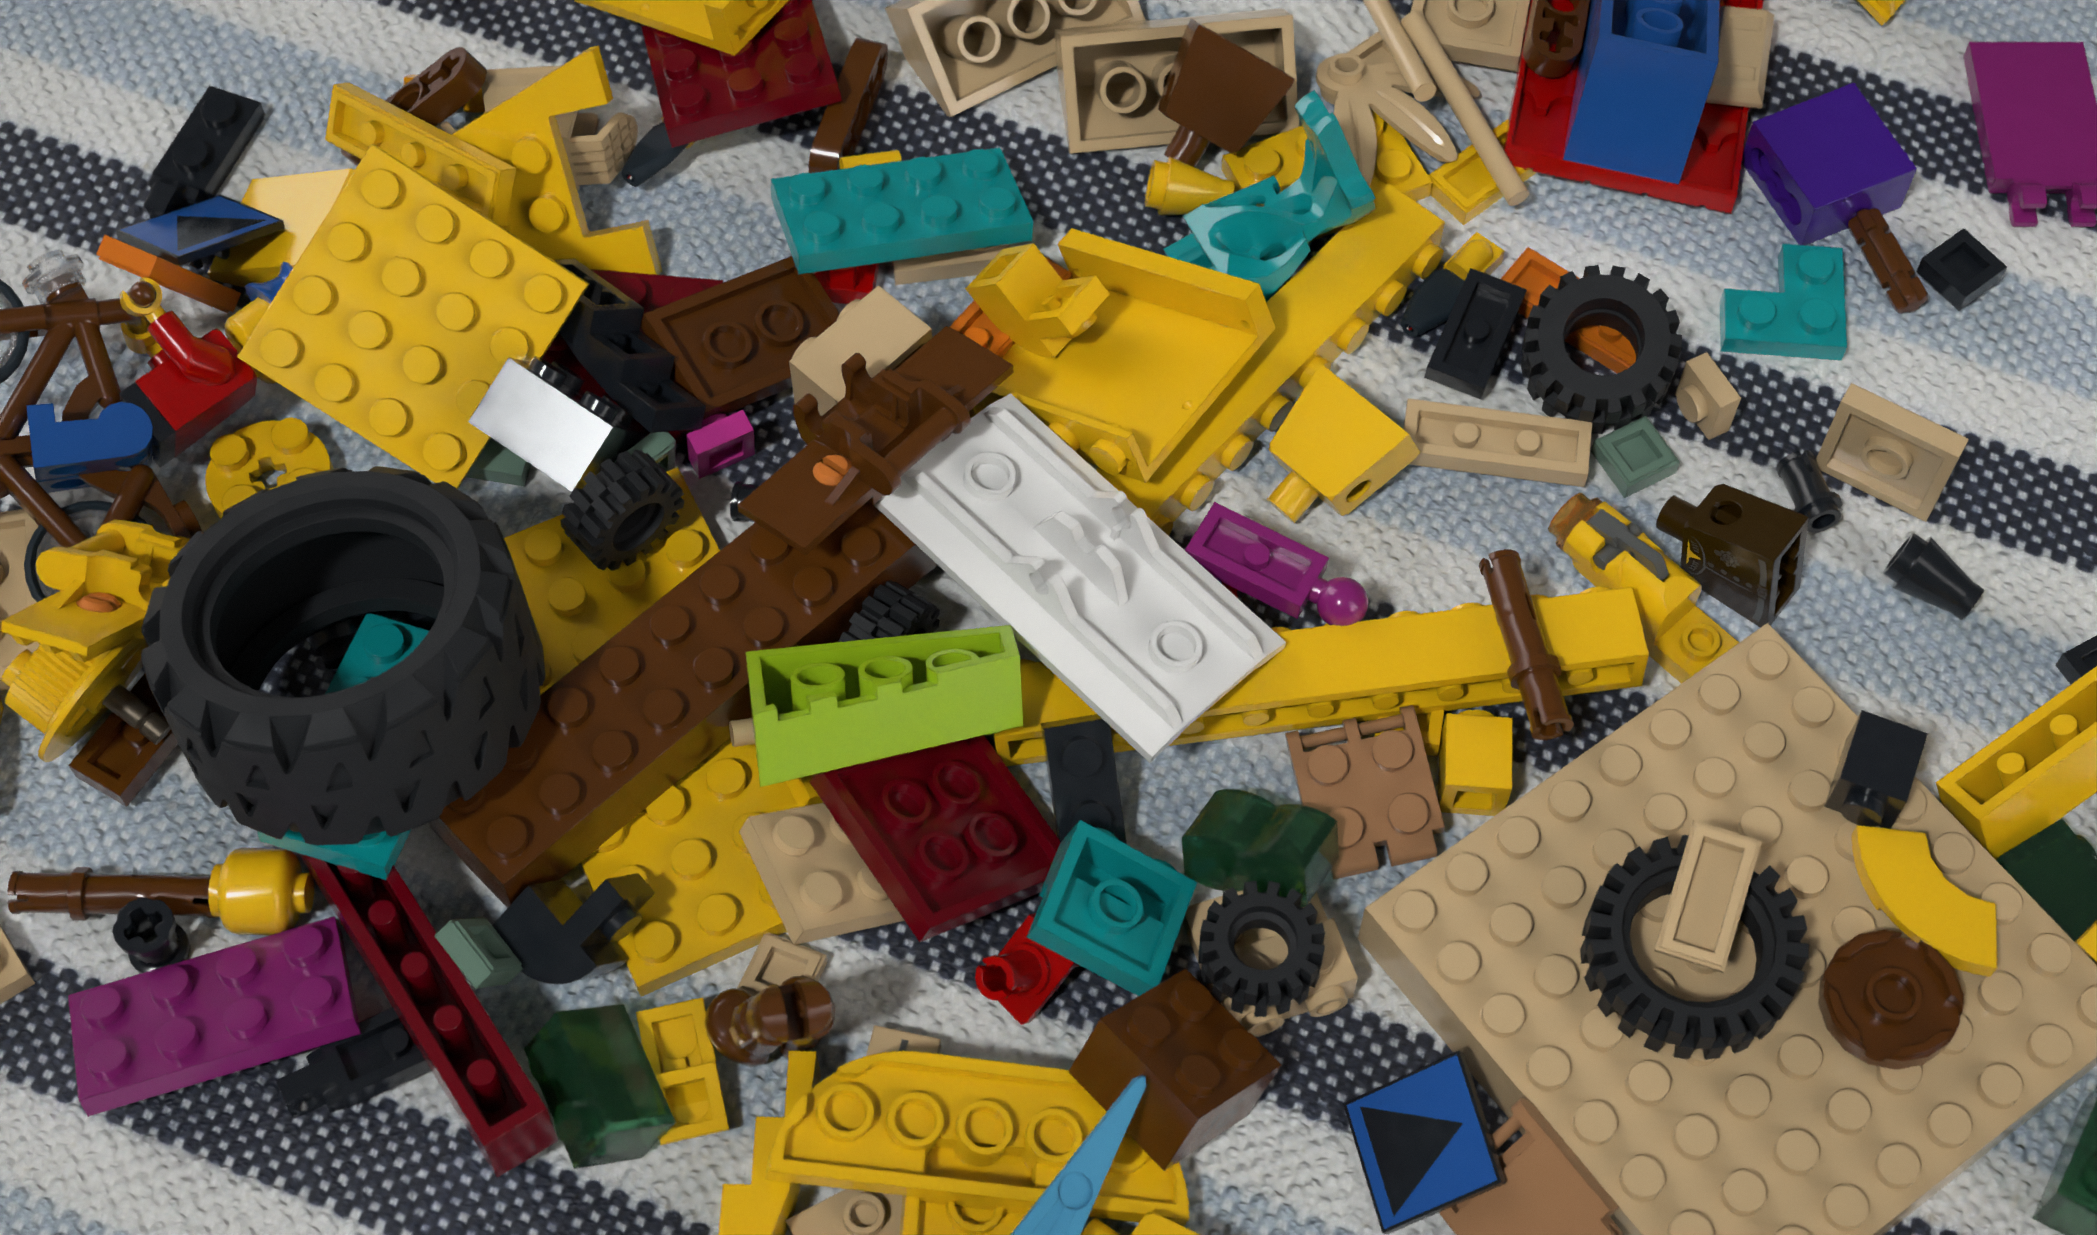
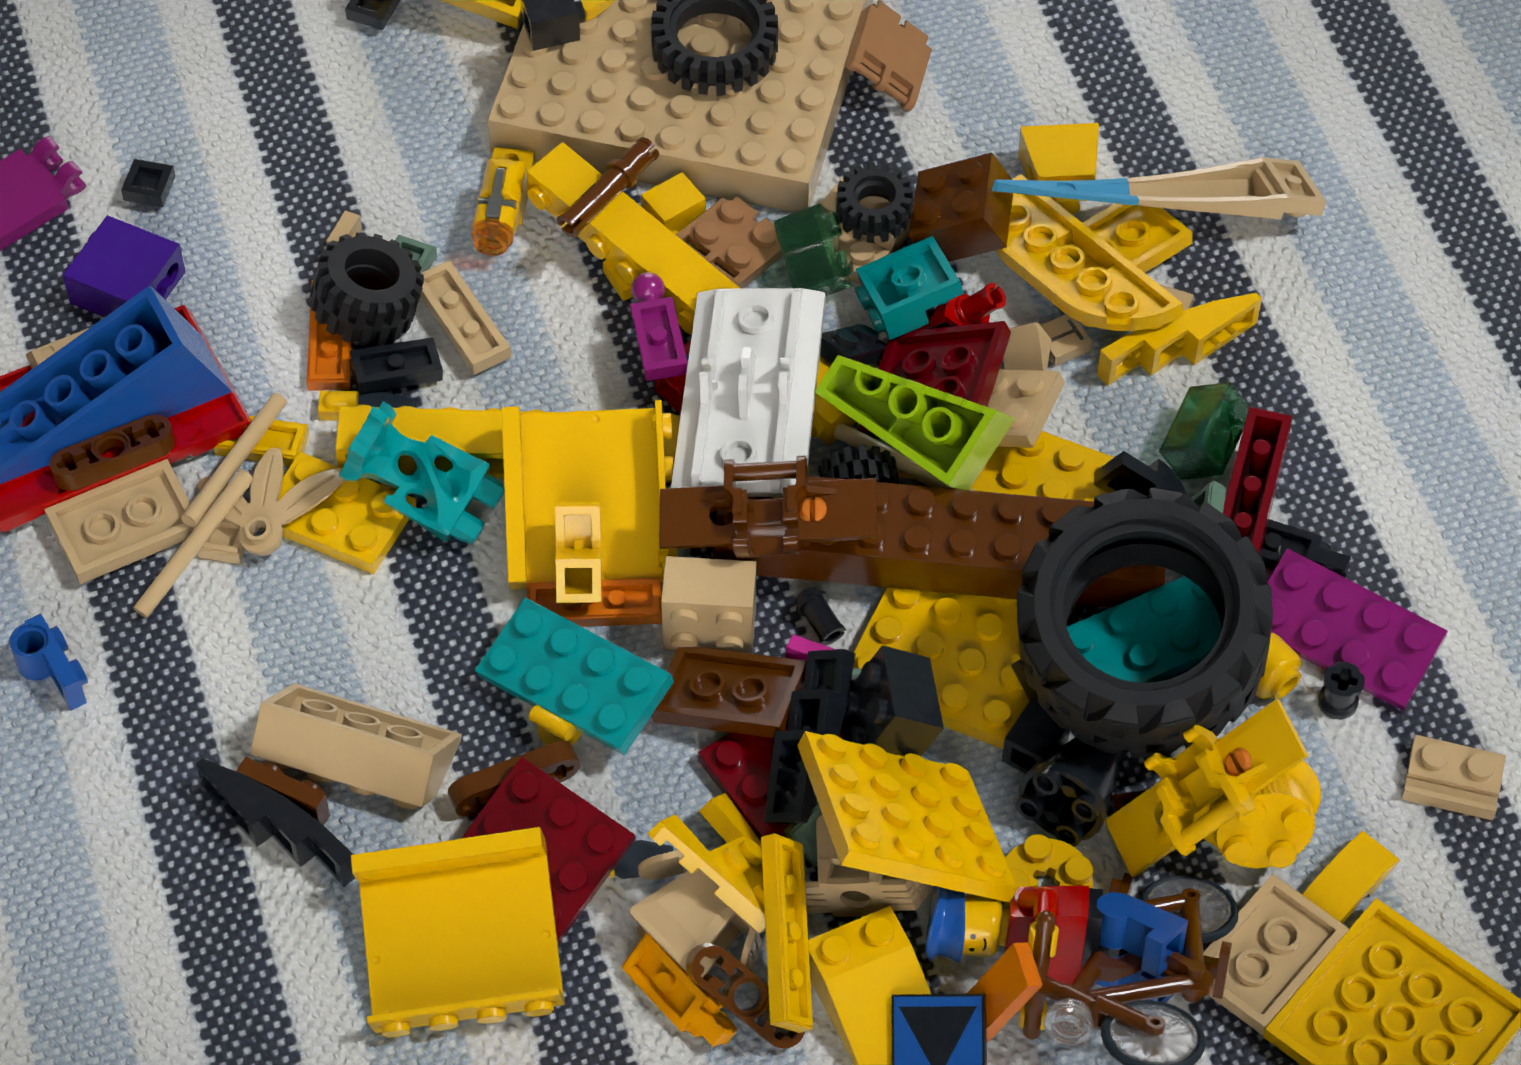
camera: 130 degrees left, 5 degrees down
(88, 893) = (1352, 746): reddish brown pin -> none
(622, 510) = (914, 629): black tyre -> none
(684, 1068) = (1149, 427): yellow slope -> none
(778, 1017) = (1108, 353): reddish brown piece -> none
(779, 960) = (1070, 420): tan tile -> none
(909, 993) = (1027, 348): none -> tan slope
(1118, 73) = (332, 624): tan slope -> none
(1180, 188) = (418, 567): yellow cone -> none
(1217, 94) = (343, 568): reddish brown torso -> none
(1335, 448) = (541, 369): yellow torso -> none
(1423, 1143) = (895, 111): piece -> none
(1708, 896) = (695, 23): tan tile -> none
(1740, 549) = (443, 164): dark brown torso -> none
(1798, 320) = (242, 238): teal plate -> none
(1809, 491) = (367, 171): black pin -> none
(1887, 260) = (174, 213): reddish brown axle -> none
(1889, 452) = (324, 132): tan tile -> none
(1932, 576) = (376, 99): black cone -> none

